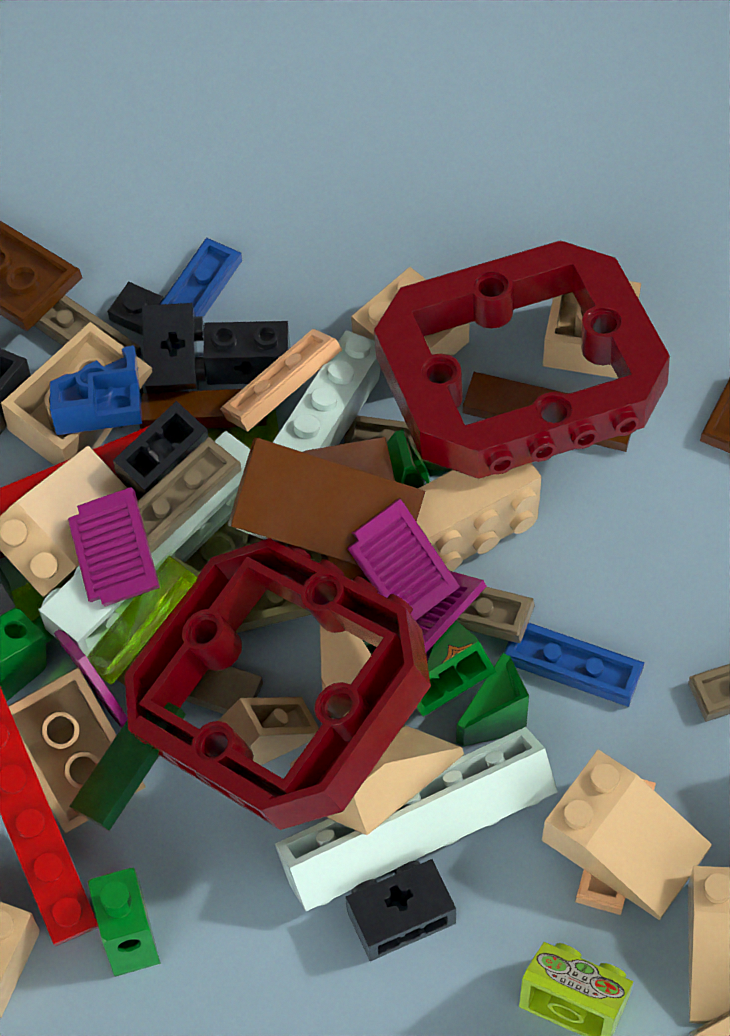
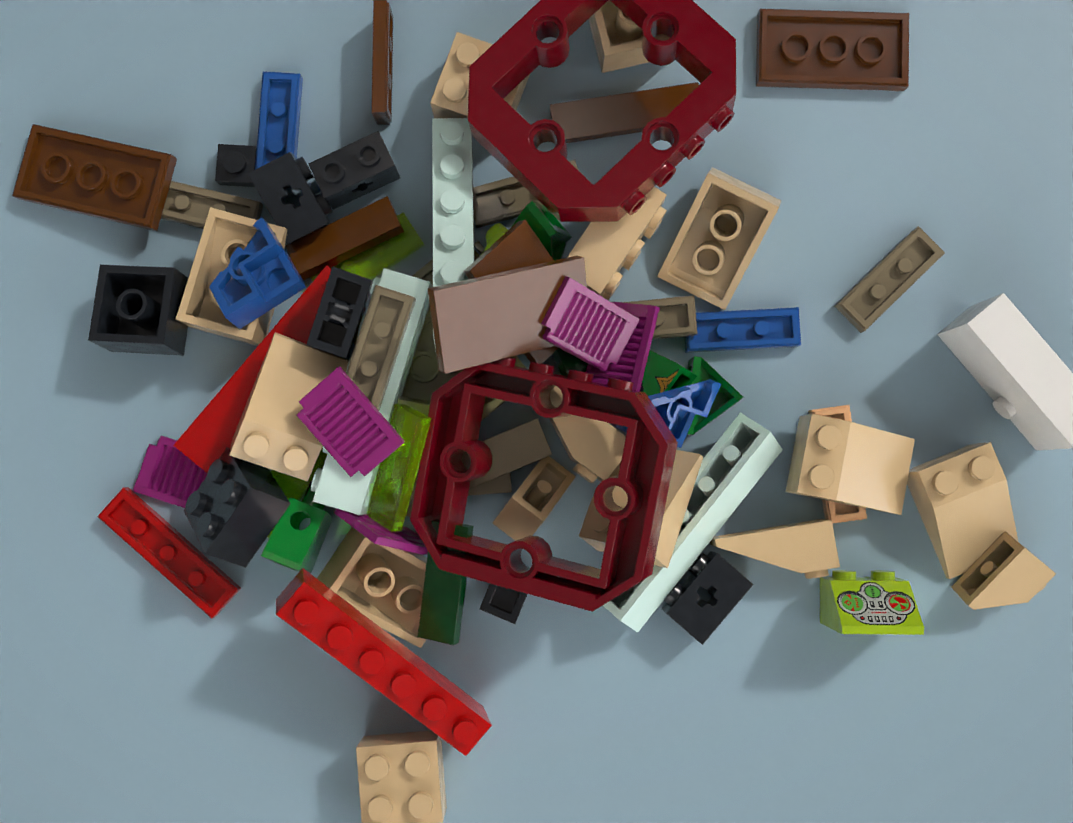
camera: 30 degrees left, 25 degrees up
(123, 917) = (501, 701): green torso -> none
(181, 817) = (503, 602): none -> black plate
(261, 672) = (512, 451): none -> dark tan tile
(280, 379) = (402, 191): light nougat tile -> none
(325, 272) = (382, 62): none -> reddish brown tile
(457, 686) = (681, 404): none -> blue slope
(517, 896) = (798, 546): none -> tan slope
(588, 559) = (719, 238): none -> tan slope

